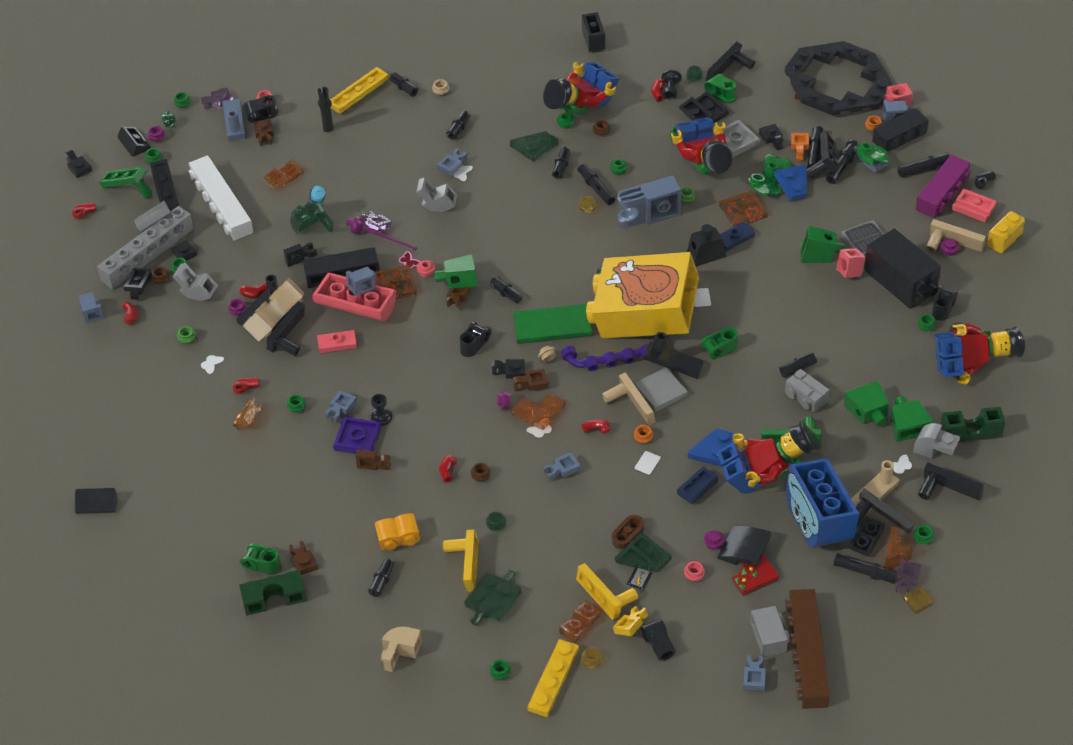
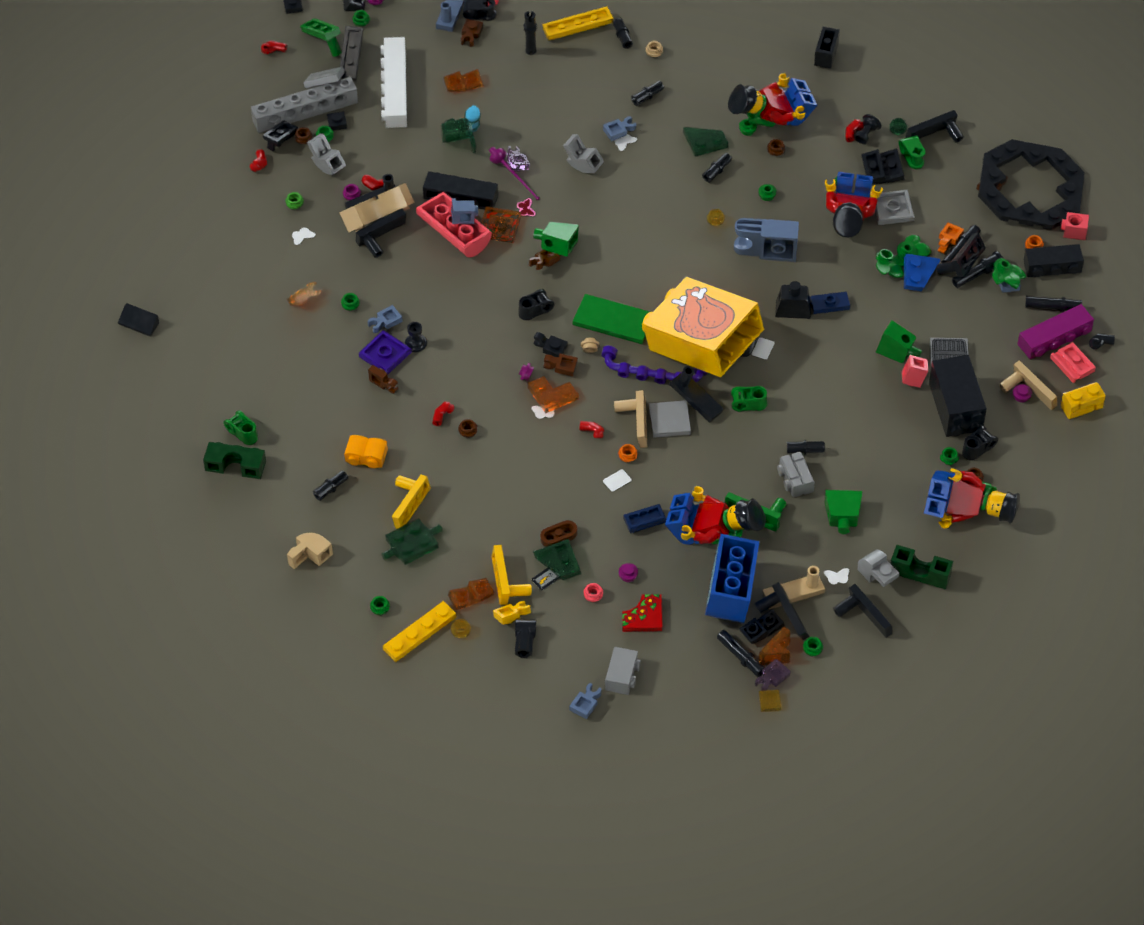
camera: 25 degrees right, 5 degrees up
(90, 307) = (227, 143): sand blue brick -> none
(244, 383) = (316, 266): red arm -> none
(296, 254) = (430, 163): black plate -> none
(303, 559) = (276, 443): reddish brown plate -> none
(336, 341) = (418, 259): coral plate -> none
(426, 268) = (534, 221): coral plate -> none
(496, 517) = (454, 473): clear green plate -> none
(505, 289) = (591, 270): black axle -> none
(563, 465) = (541, 453): sand blue plate -> none
(592, 180) = (734, 195): black pin -> none
(687, 195) = (811, 244): bright green plate -> none
(707, 448) = (679, 486): blue wing -> none
(743, 208) = (856, 279): clear orange tile -> none
(744, 545) = (650, 589): black slope -> none
(772, 135) = (931, 216): black plate -> none
(808, 647) = (644, 700): reddish brown brick -> none
(894, 109) = (1061, 237): sand blue brick -> none
(908, 418) = (868, 537): green torso -> none

